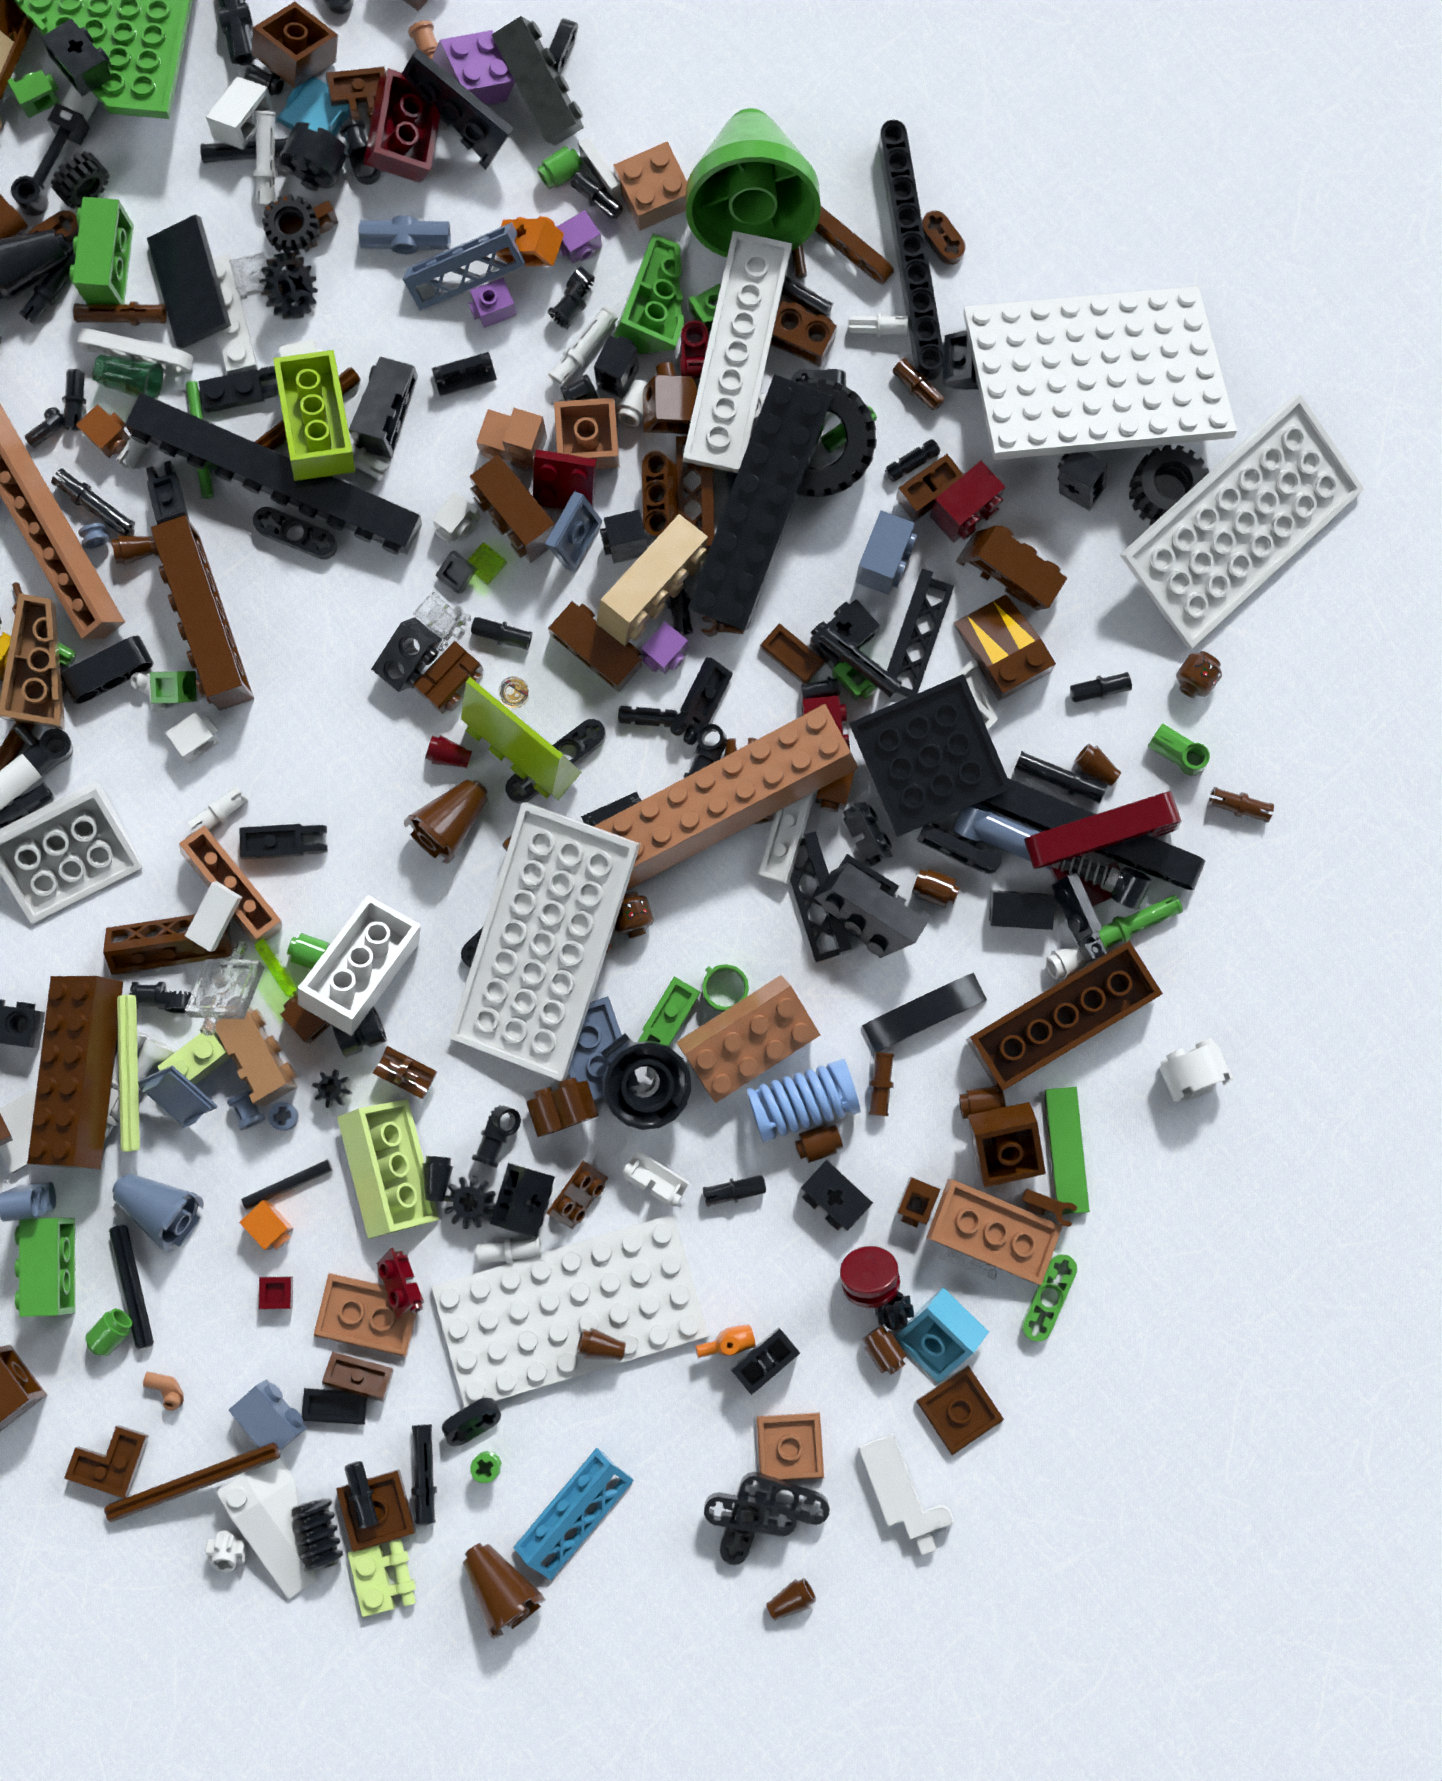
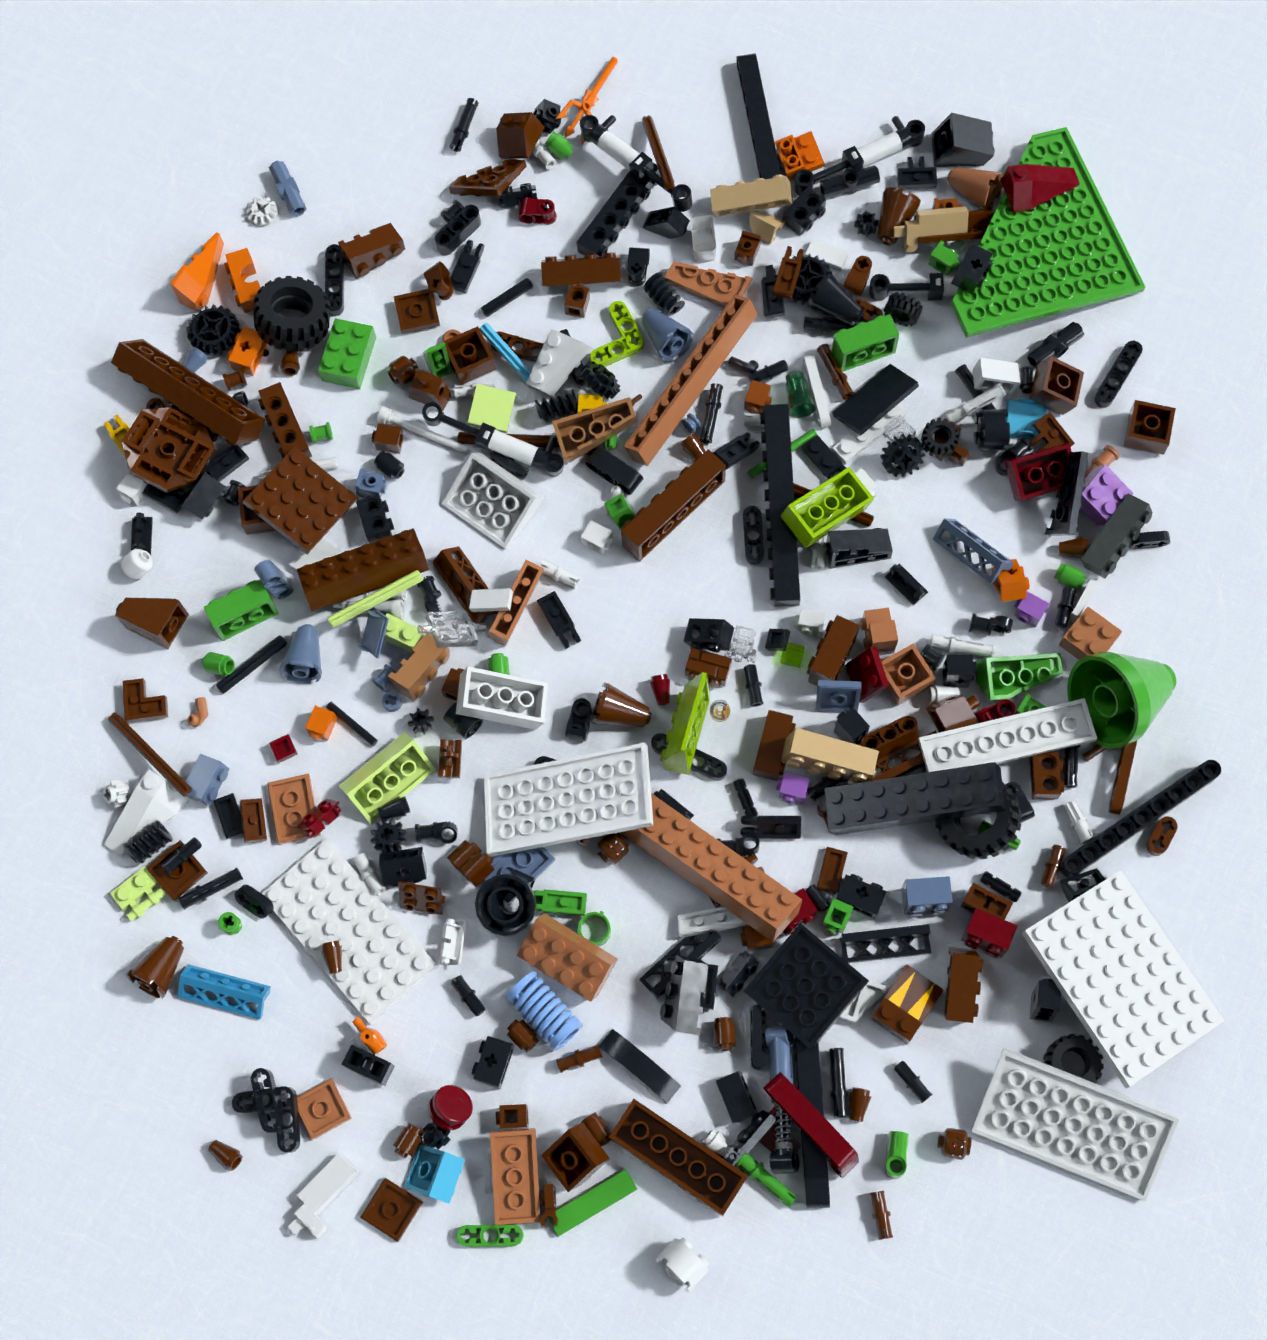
camera: 70 degrees right, 10 degrees down
(277, 968) = (481, 651): clear neon green tile -> none
(404, 234) = (974, 507): sand blue piece -> none
(438, 879) = (579, 724): none -> black piece
(492, 303) = (959, 578): medium lavender brick -> none
(524, 140) = (1074, 547): none -> reddish brown cone
(859, 661) = (849, 888): black pin -> none

